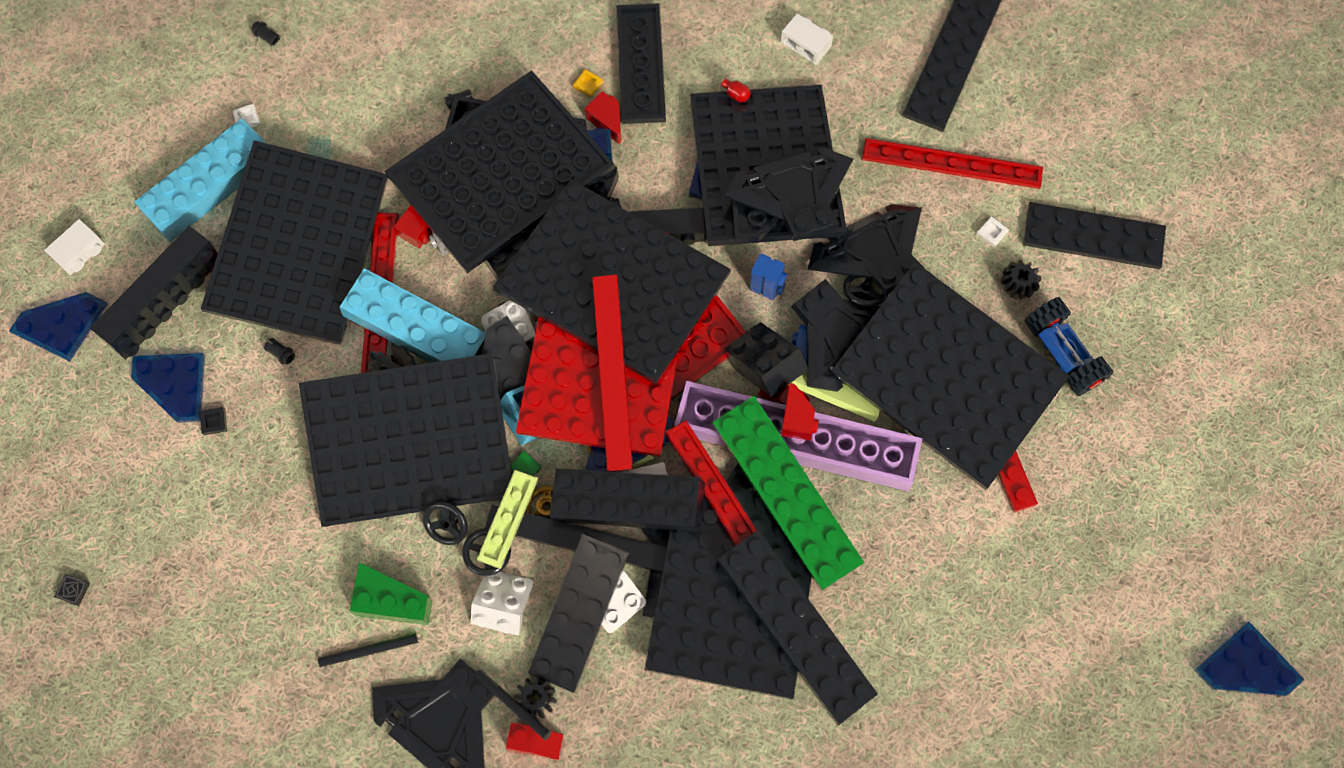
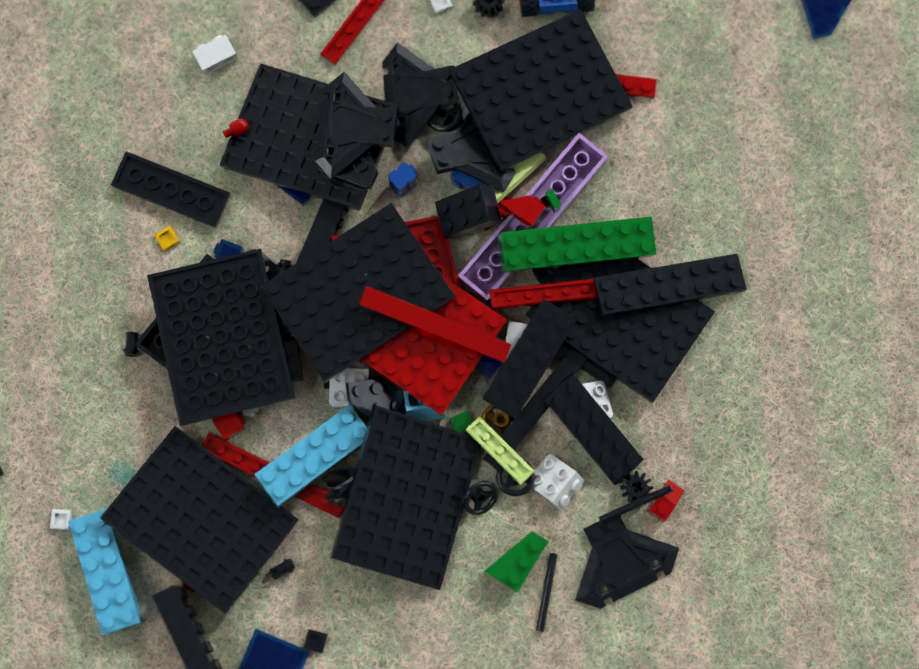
camera: 70 degrees left, 10 degrees up
(604, 113) = (205, 236): red slope -> none
(824, 442) = (552, 200): none -> green tile

